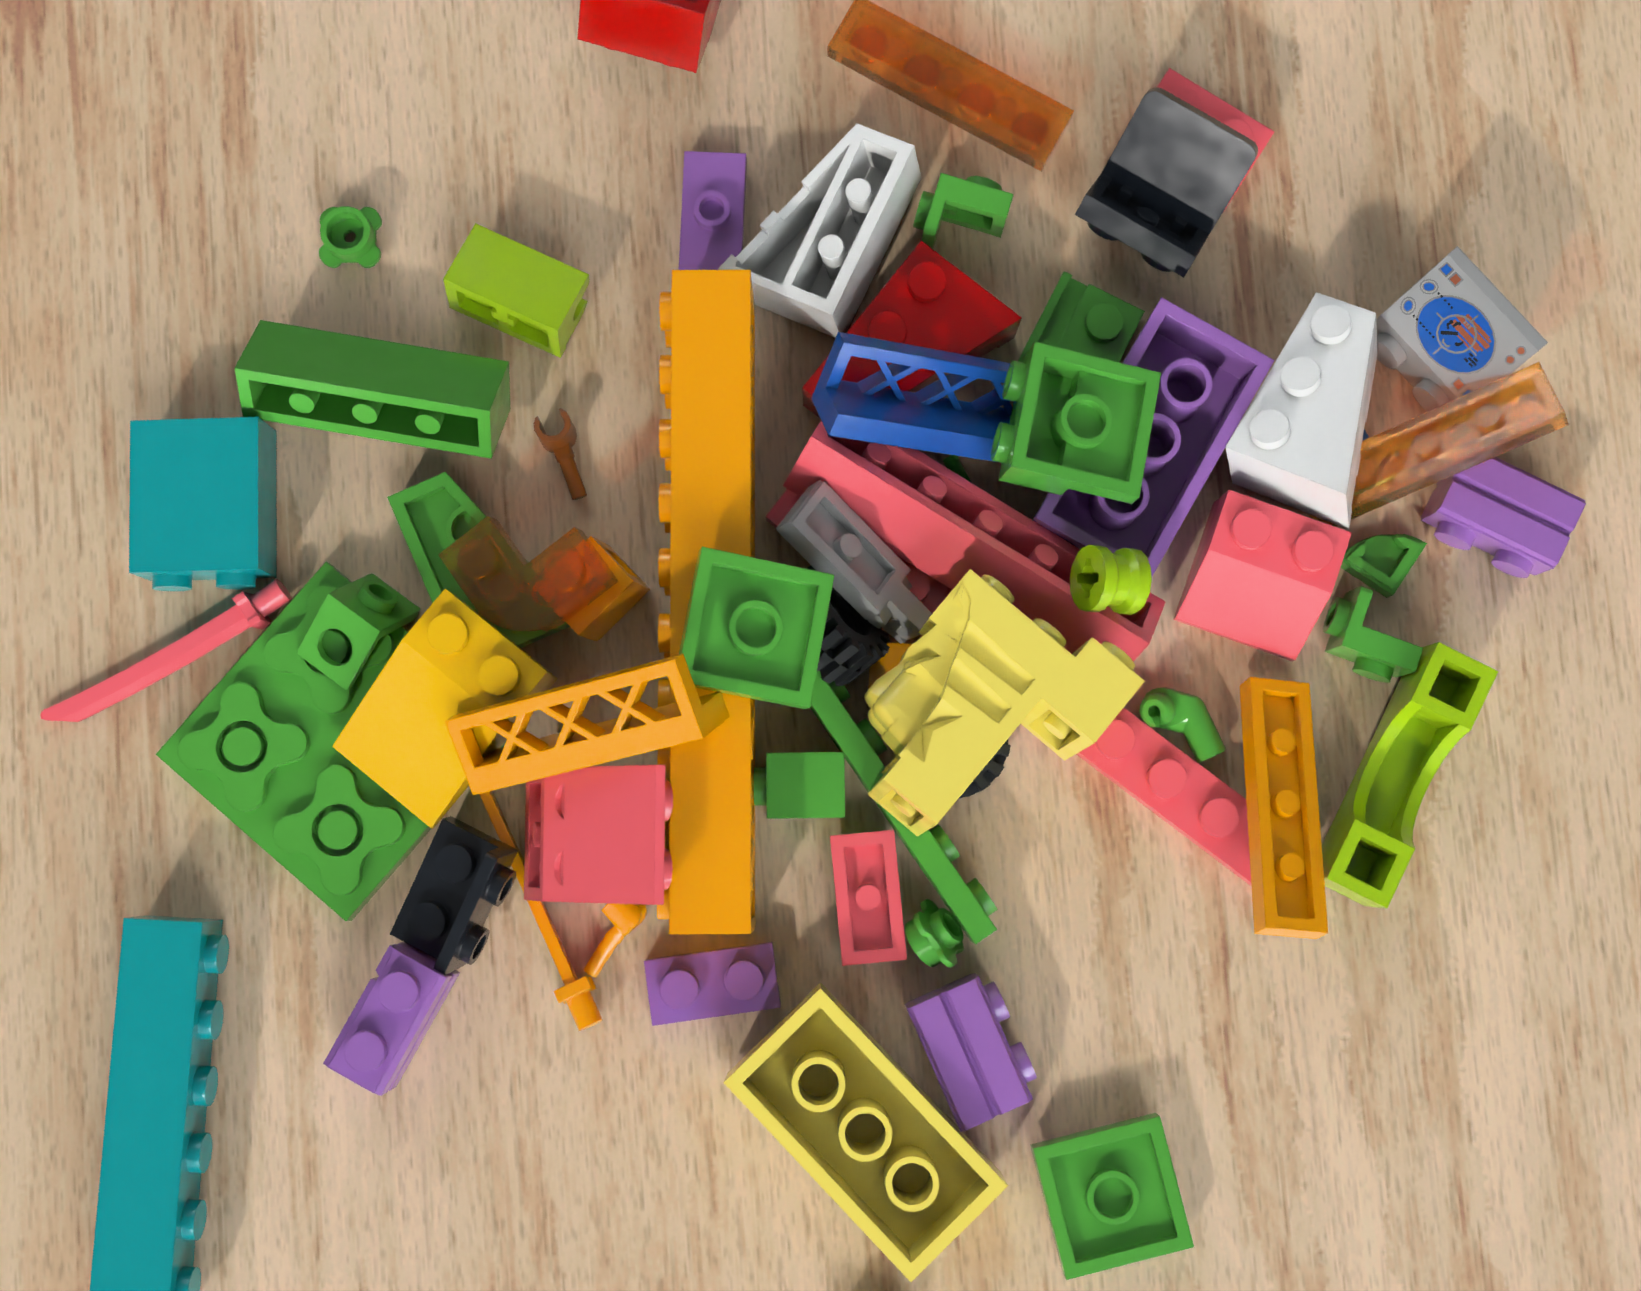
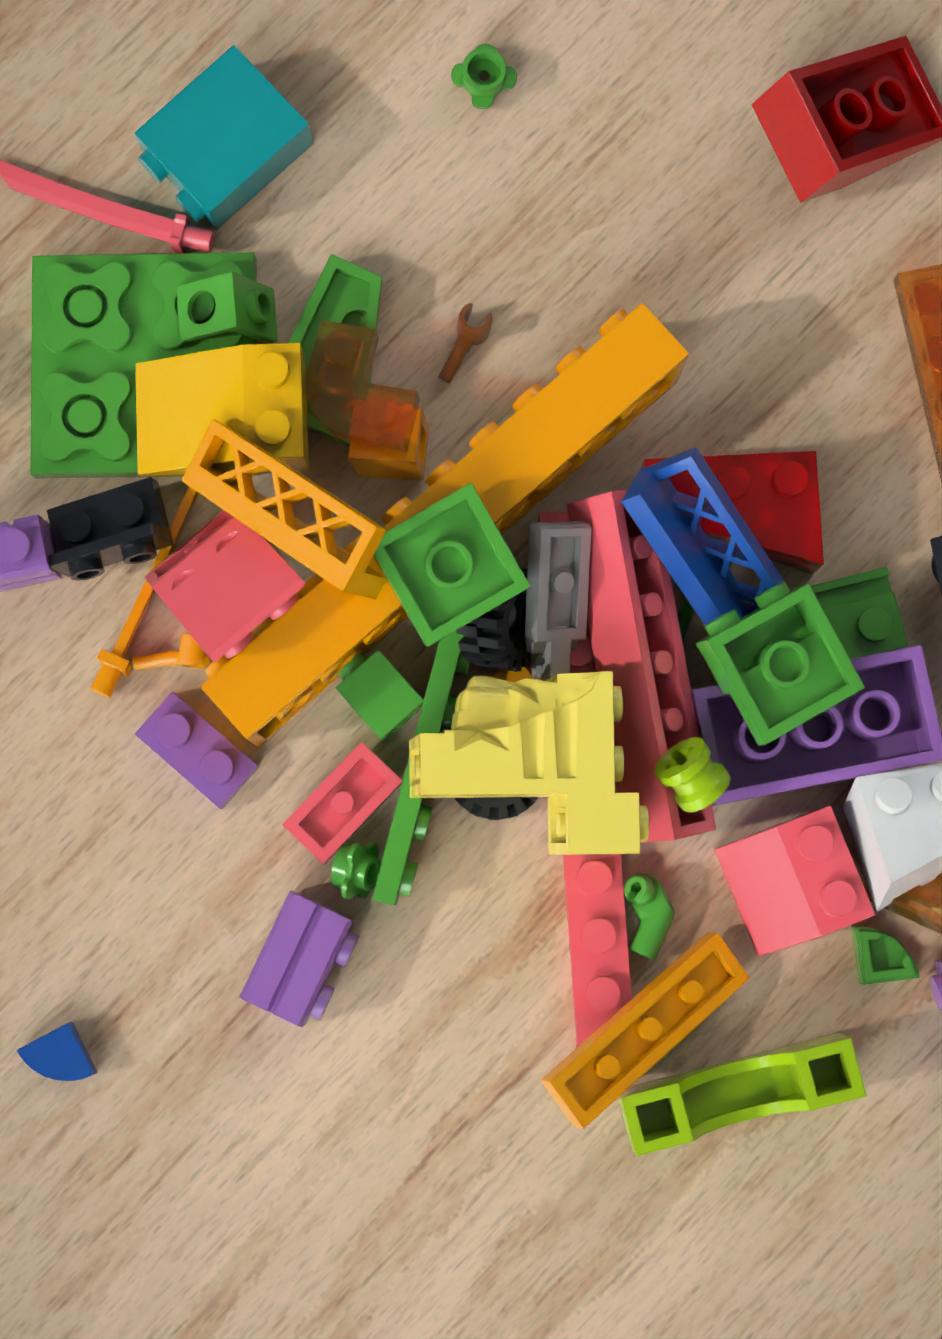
camera: 50 degrees right, 0 degrees up
(374, 388) = (395, 182): bright green brick -> none
(516, 290) = (545, 215): lime hinge -> none
(712, 209) = (714, 298): medium lavender plate -> none
(832, 235) = (770, 389): white wedge -> none
(865, 1132) = (185, 933): light yellow brick -> none
(969, 203) = (877, 464): bright green bracket -> none
(1112, 1196) = (284, 1139): bright green plate -> none
(1373, 652) = (809, 1005): bright green bracket -> none

